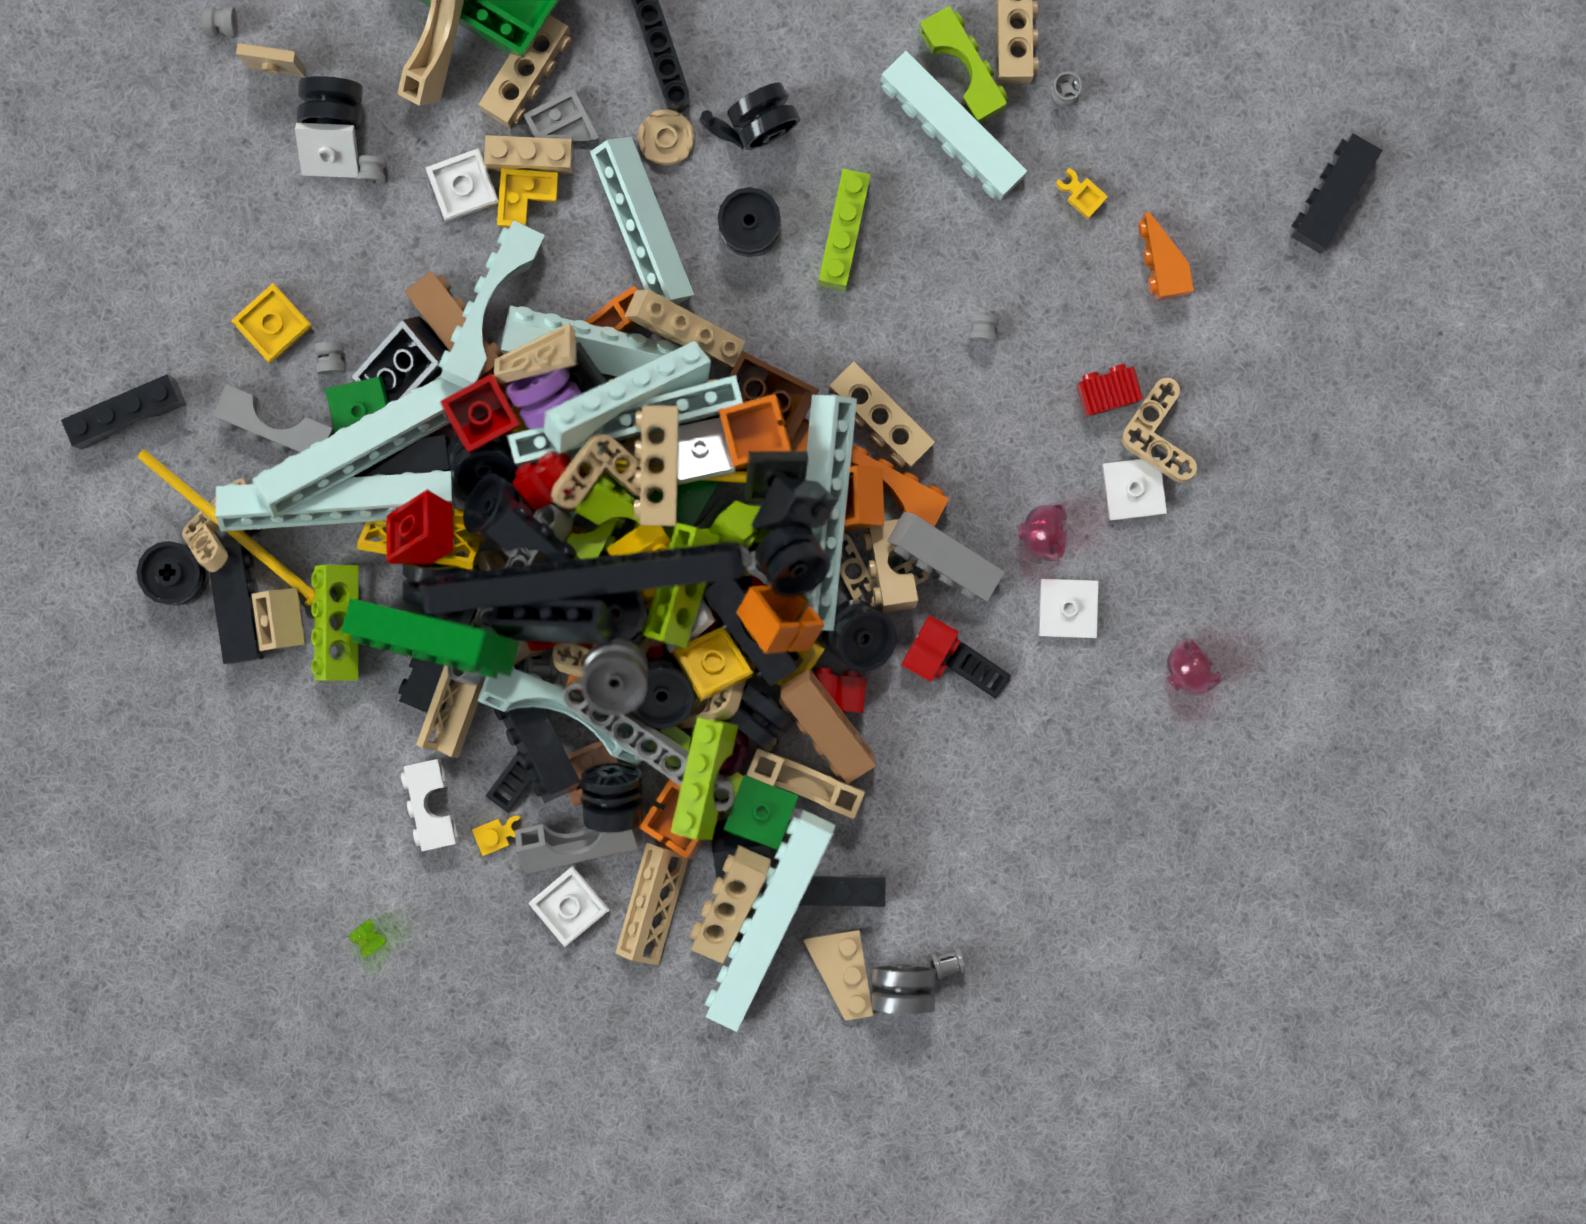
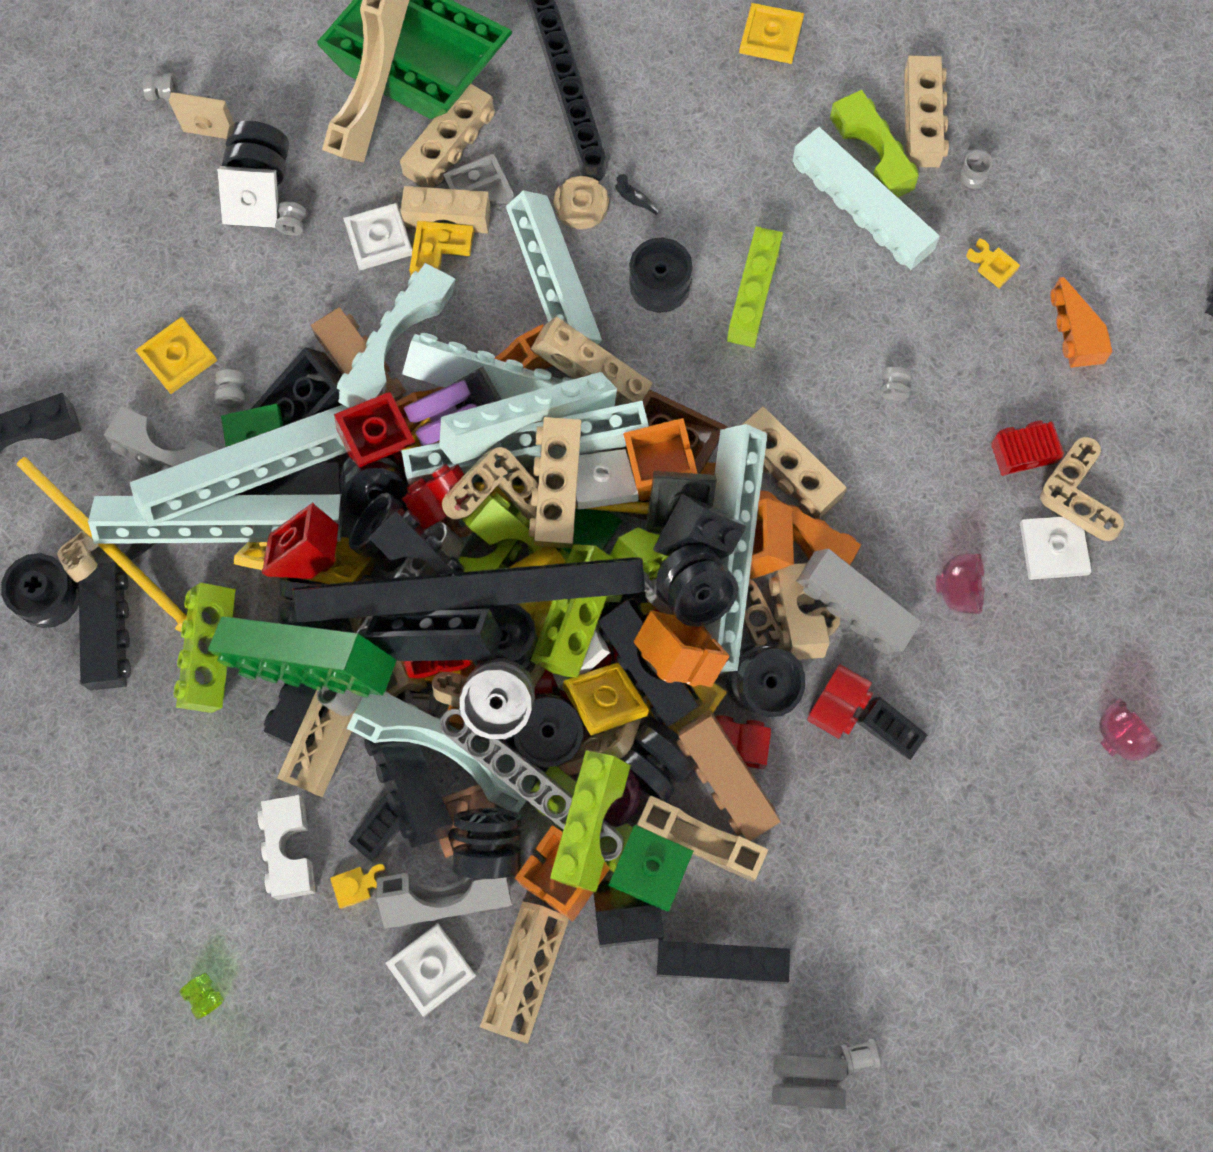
camera: 10 degrees right, 15 degrees down
(278, 619) = (145, 641): tan brick -> none
(539, 356) = (444, 374): tan wing -> none
(716, 941) = (595, 1016): tan brick -> none
(763, 116) = (678, 178): black wheel -> none
(770, 920) = (657, 991): light aqua brick -> none
(843, 970) = (739, 1060): tan wing -> none
(1068, 608) = (988, 667): white plate -> none

